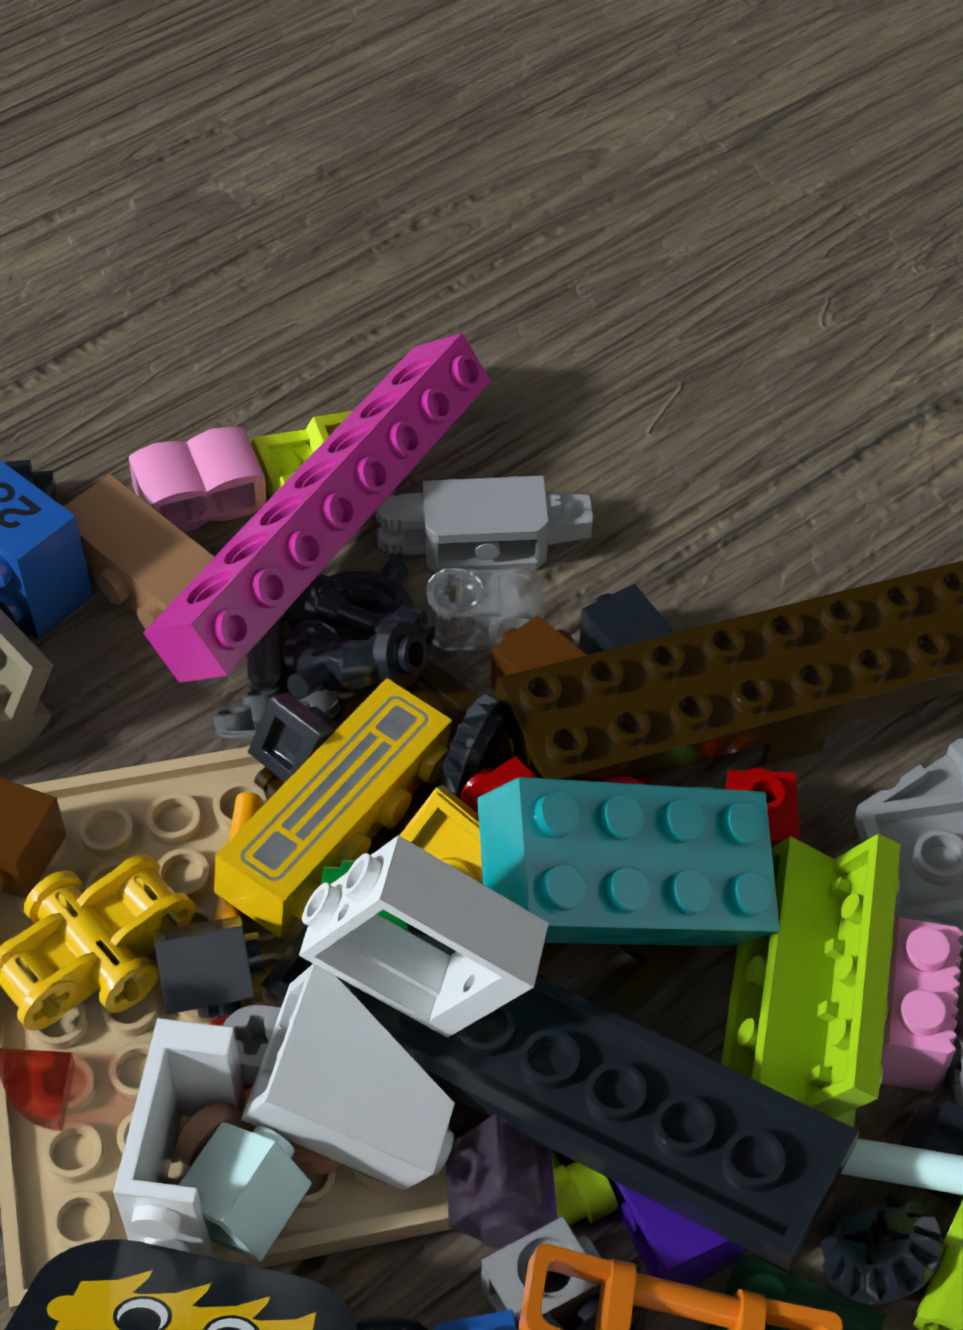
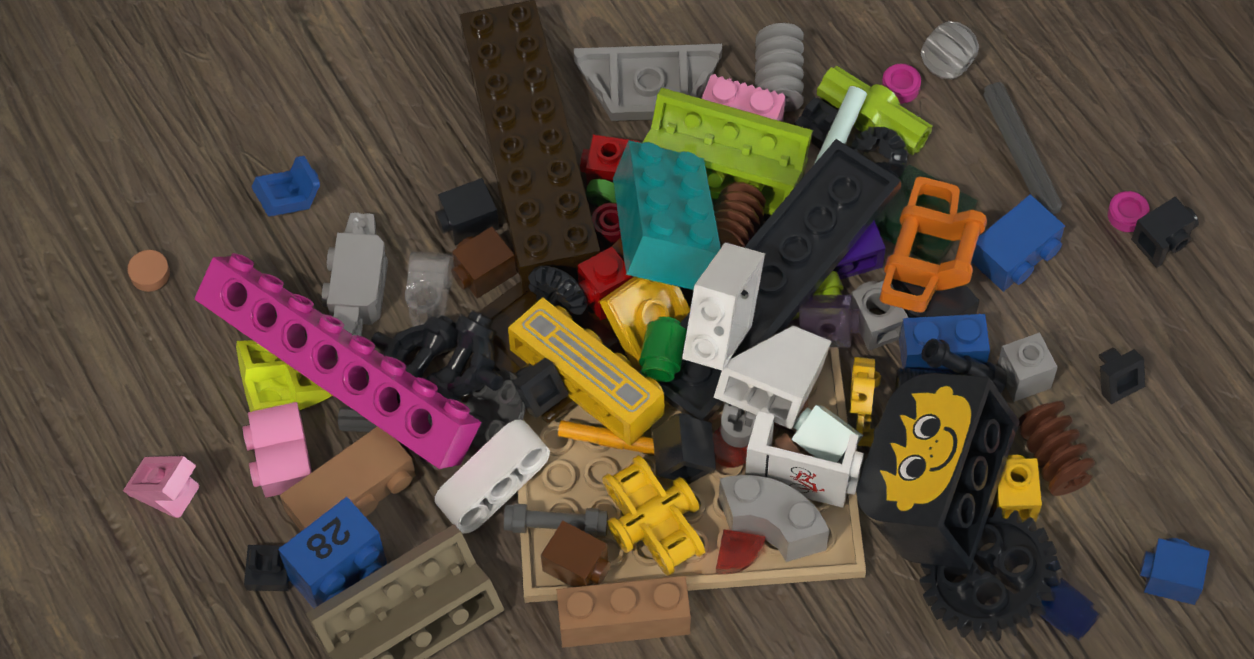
camera: 80 degrees left, 10 degrees up
(82, 1129) = (774, 511): none -> light grey brick
(84, 767) = (518, 518): none -> dark grey bar
(136, 374) = (164, 484): none -> bright pink slope
(158, 721) = (492, 476): none -> white beam
(383, 1264) = (861, 396): none -> yellow piece
(466, 311) = (148, 270): none -> nougat tile
(616, 424) = (287, 190): none -> blue bracket
(673, 998) = (738, 213): none -> copper piece

